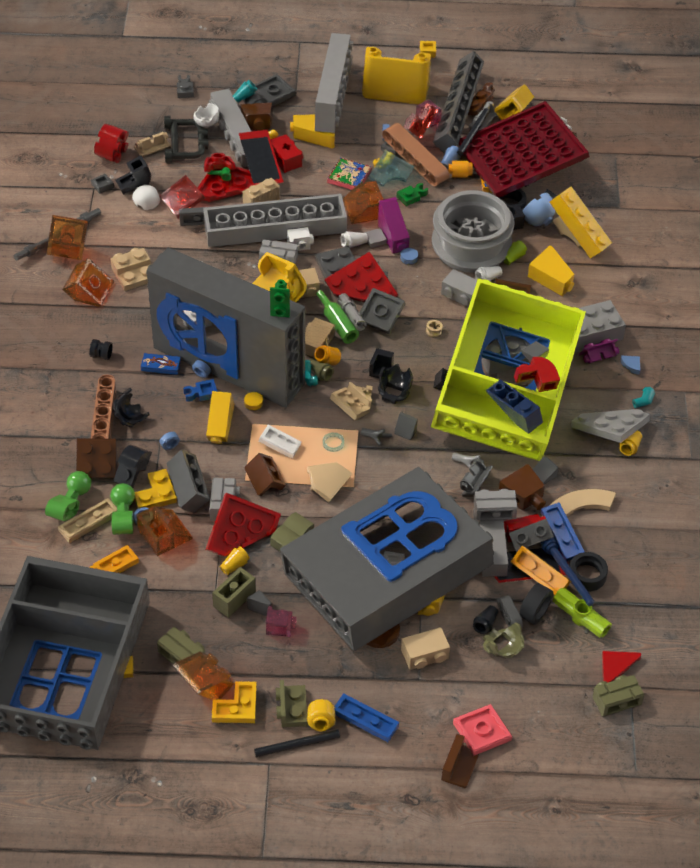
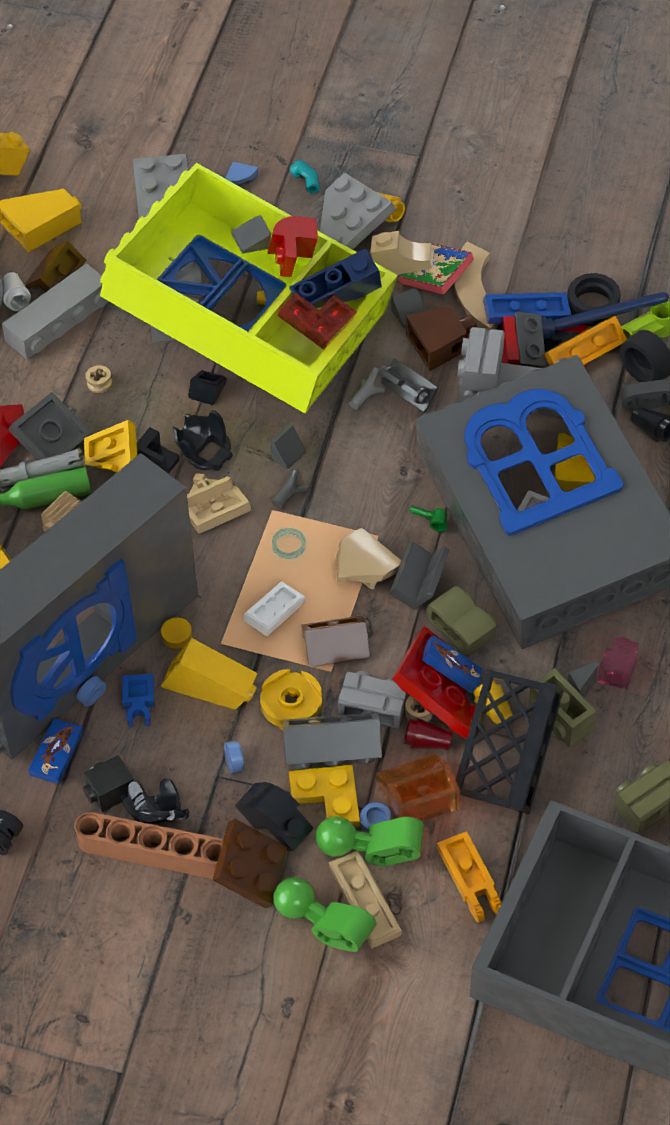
camera: 75 degrees left, 5 degrees up
(142, 388) = (107, 782): none -> pearl dark grey brick
(201, 574) = (534, 747): none -> black fence
(203, 528) = (426, 735): none -> dark red cone
(217, 470) = (285, 682): none -> yellow plate
(254, 531) = (452, 664): none -> blue tile
(280, 300) = (142, 466): green hinge -> none
(321, 505) = (418, 575): none -> dark grey panel
(372, 340) = (111, 447): none -> yellow wing
(475, 401) = (317, 325): none -> clear red plate
(582, 478) = (447, 268): none -> tile
(583, 453) = (400, 254): none -> tan arch

